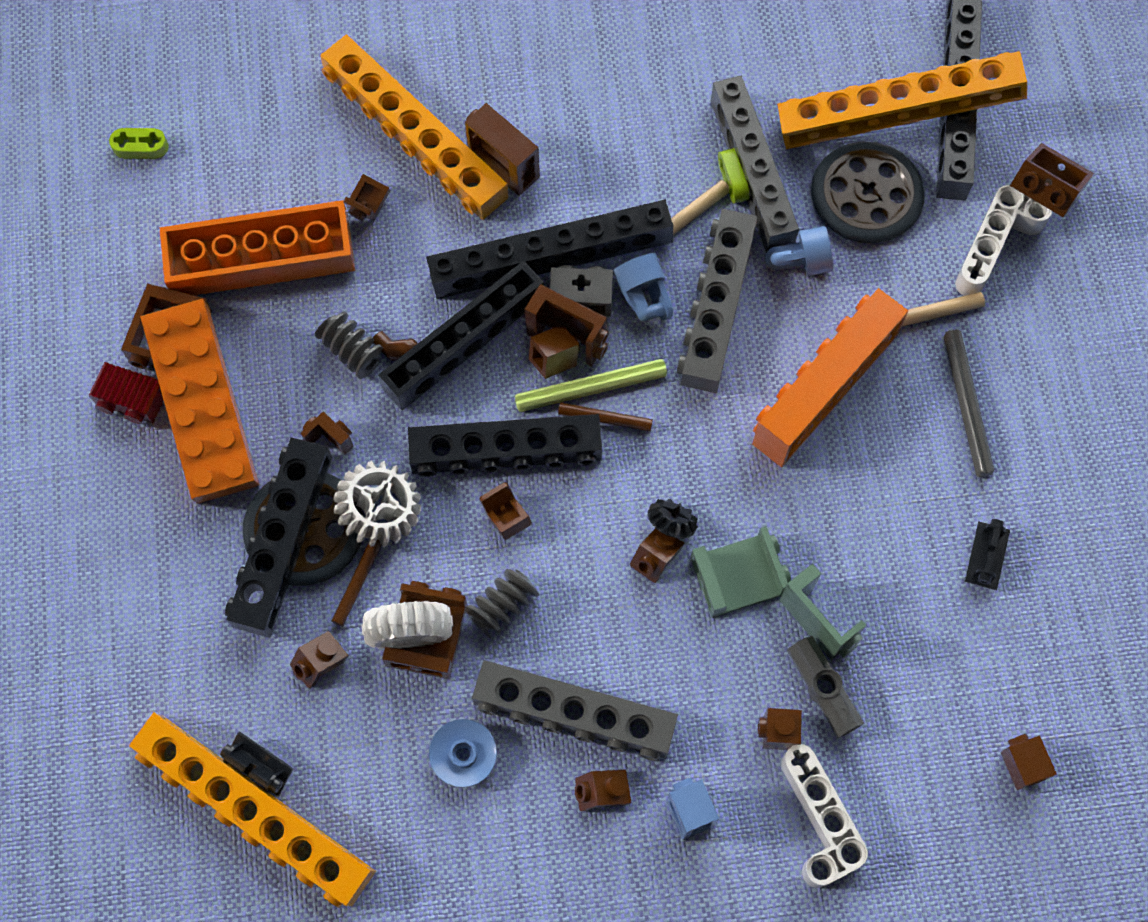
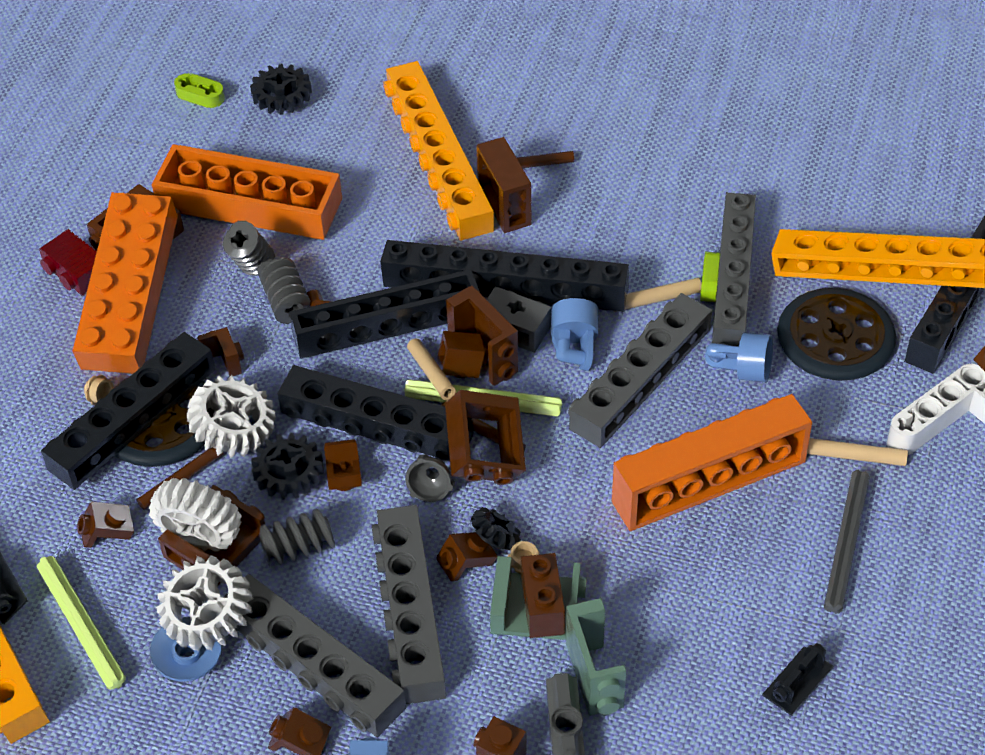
camera: 25 degrees right, 20 degrees down
(222, 113) = (281, 89): none -> black gear
(231, 522) = (97, 388): none -> tan plate
(286, 312) = (246, 247): none -> dark grey piece
(350, 765) = (81, 623): none -> yellowish green axle
(367, 198) = (365, 188): reddish brown bracket -> none
(446, 540) = (287, 466): none -> black gear
(461, 694) = (216, 616): none -> white gear
(520, 98) = (546, 159): none -> reddish brown bar
(533, 377) = (431, 369): none -> tan piece
(589, 491) = (427, 484): none -> dark grey piece
(593, 550) = (423, 680): none -> dark grey brick
(641, 424) = (485, 407): none -> reddish brown window
(713, 529) = (521, 549): none -> tan plate
(747, 569) = (542, 595): none -> reddish brown brick

